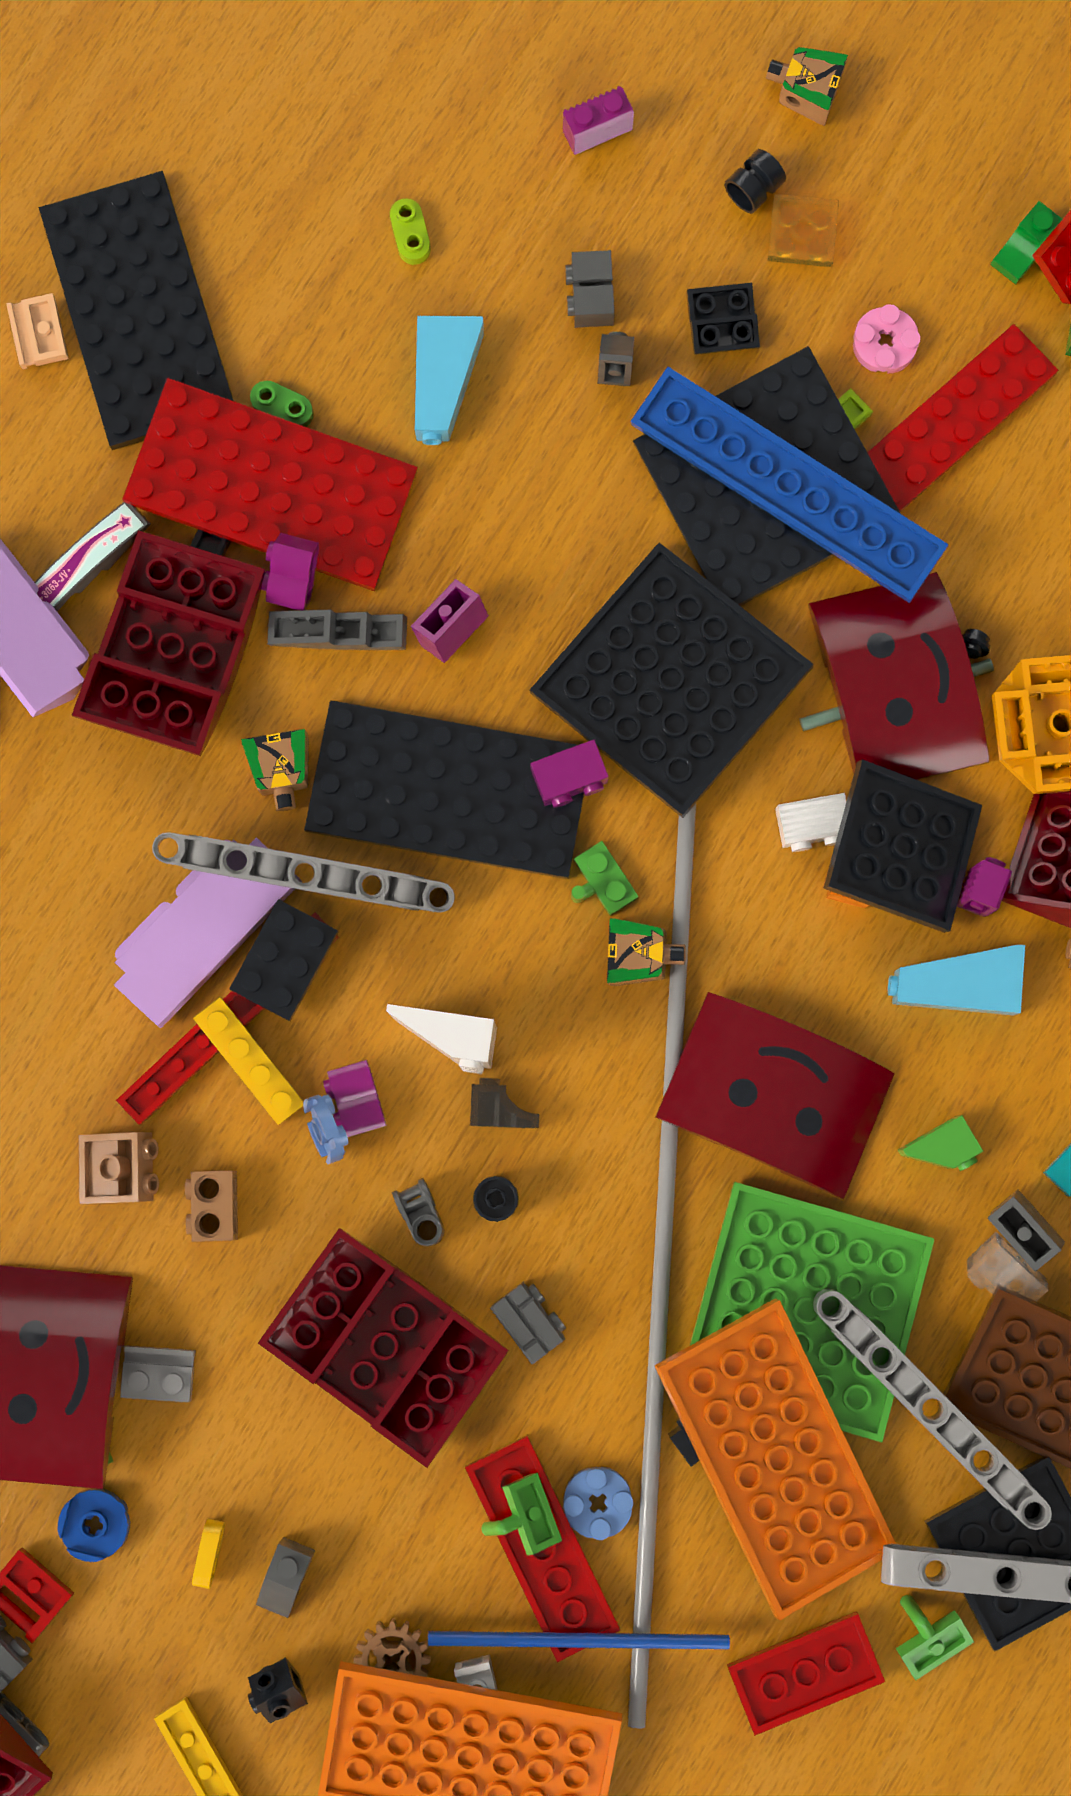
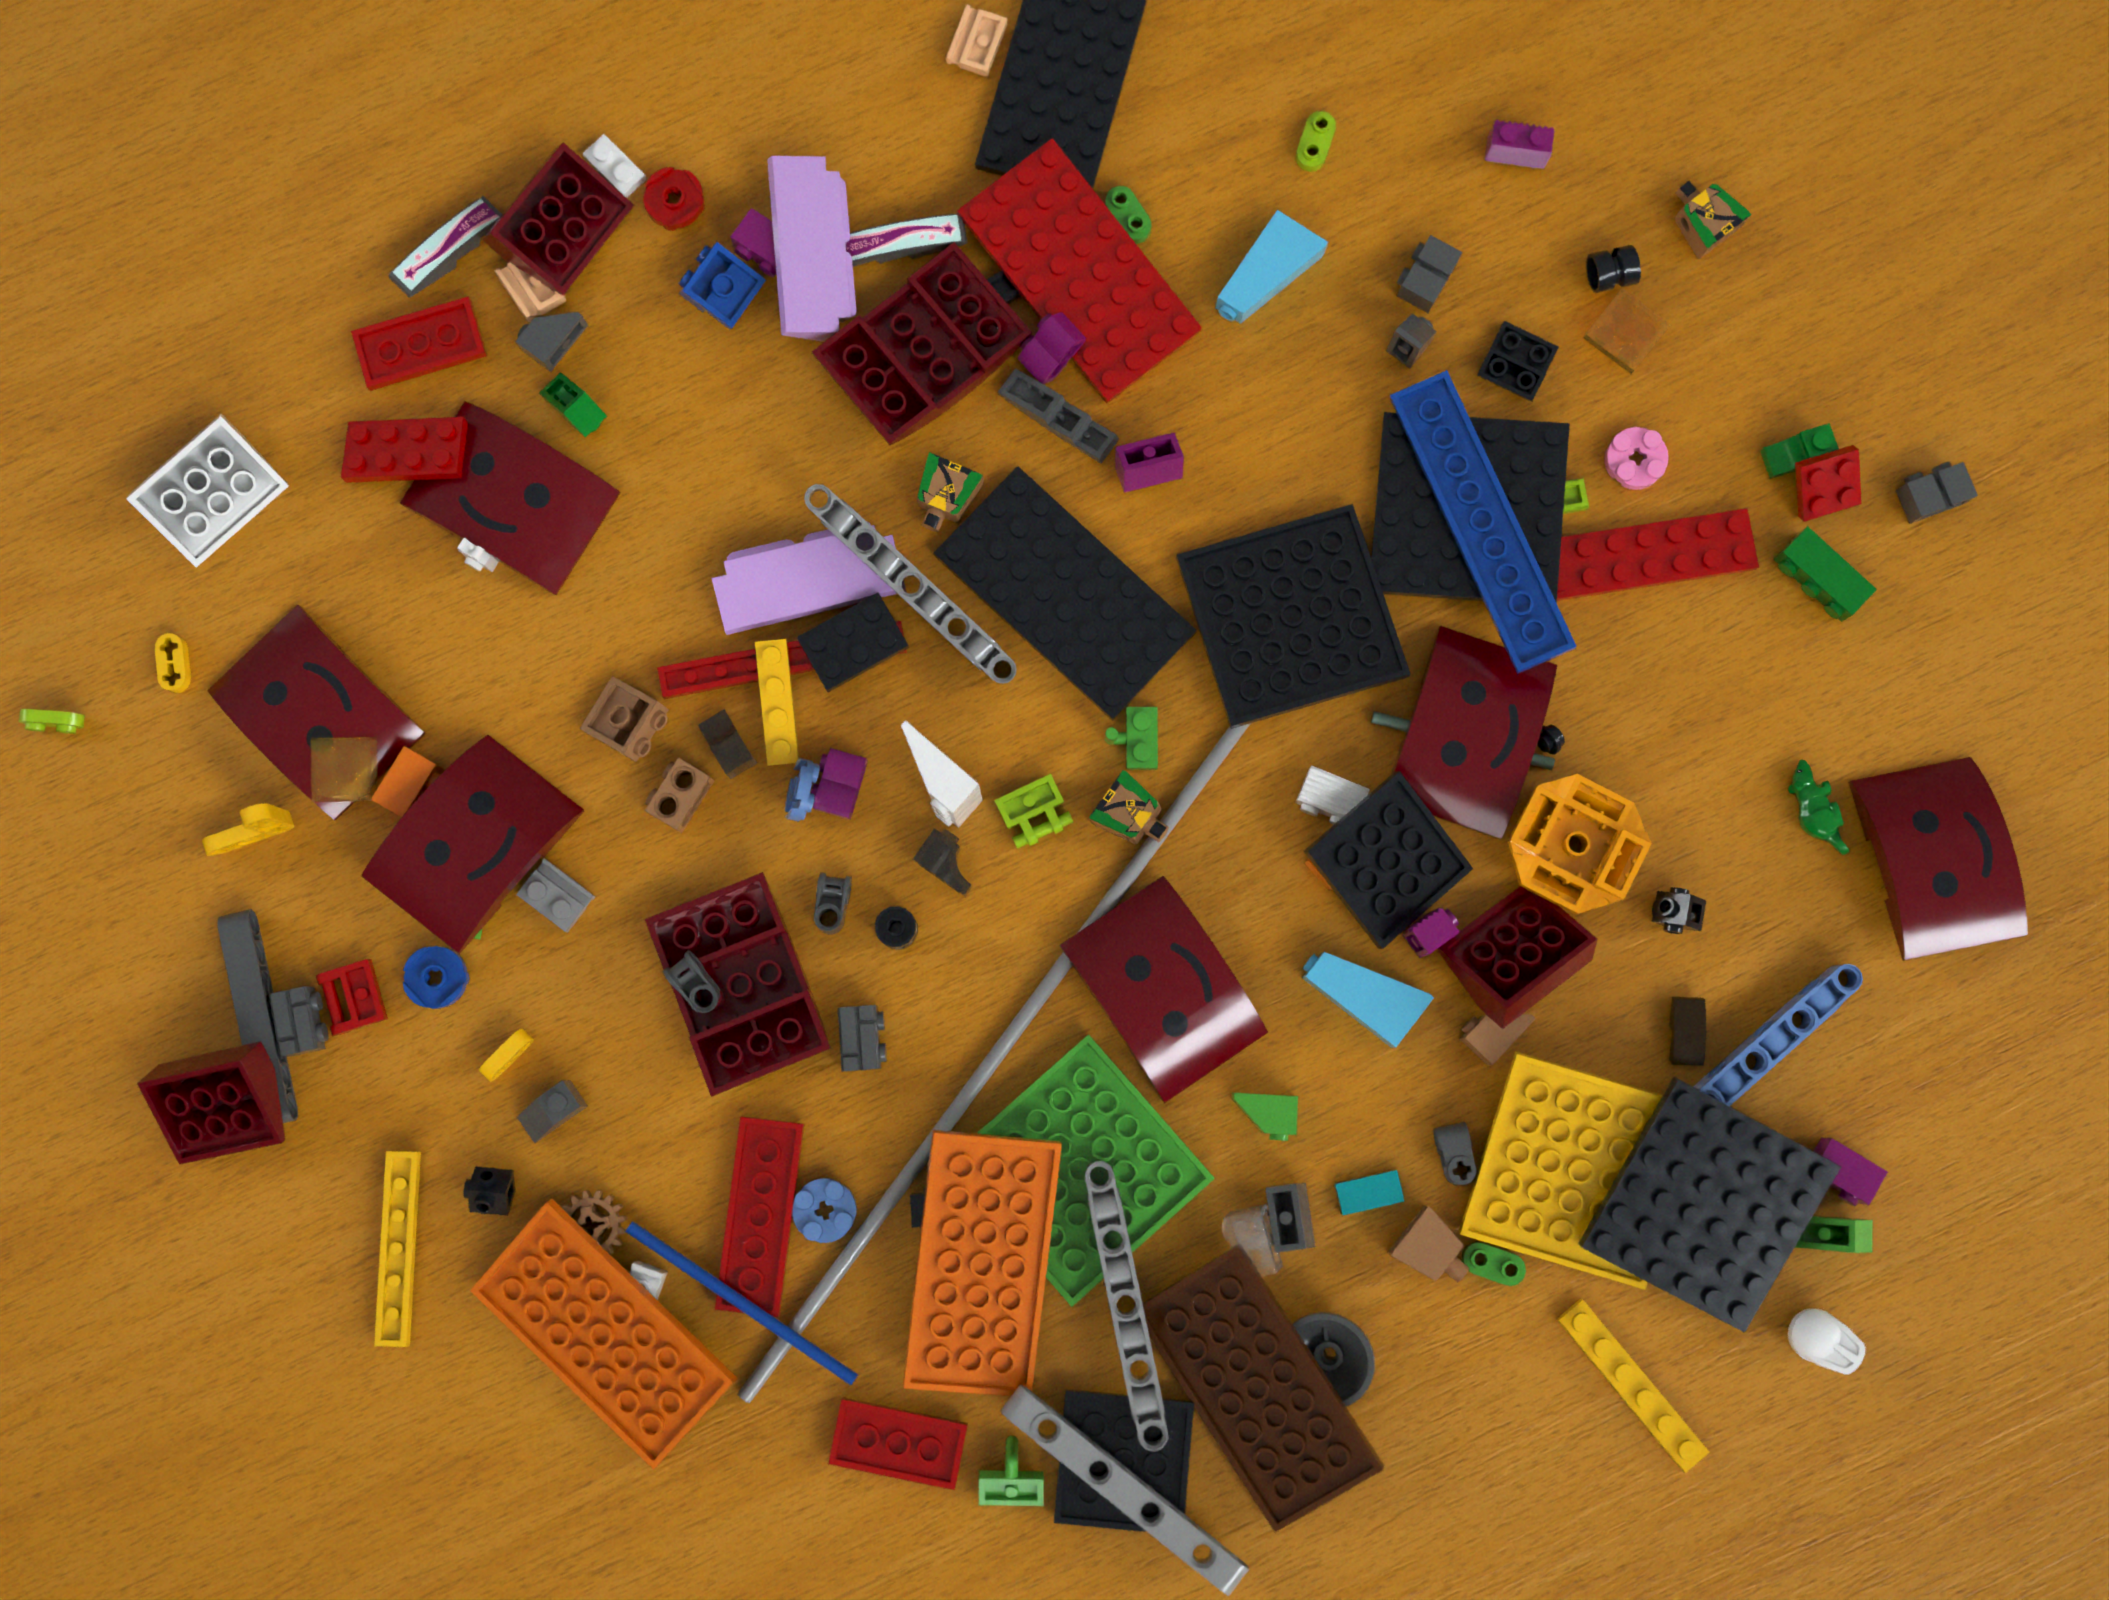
camera: 30 degrees right, 0 degrees up
(227, 1129) = (727, 744): none -> clear smoke arch
(340, 1373) = (692, 981): none -> dark grey piece
(529, 1515) = (765, 1184): bright green plate -> none
(543, 1001) = (1030, 802): none -> lime plate
(569, 774) = (1164, 638): magenta brick -> none

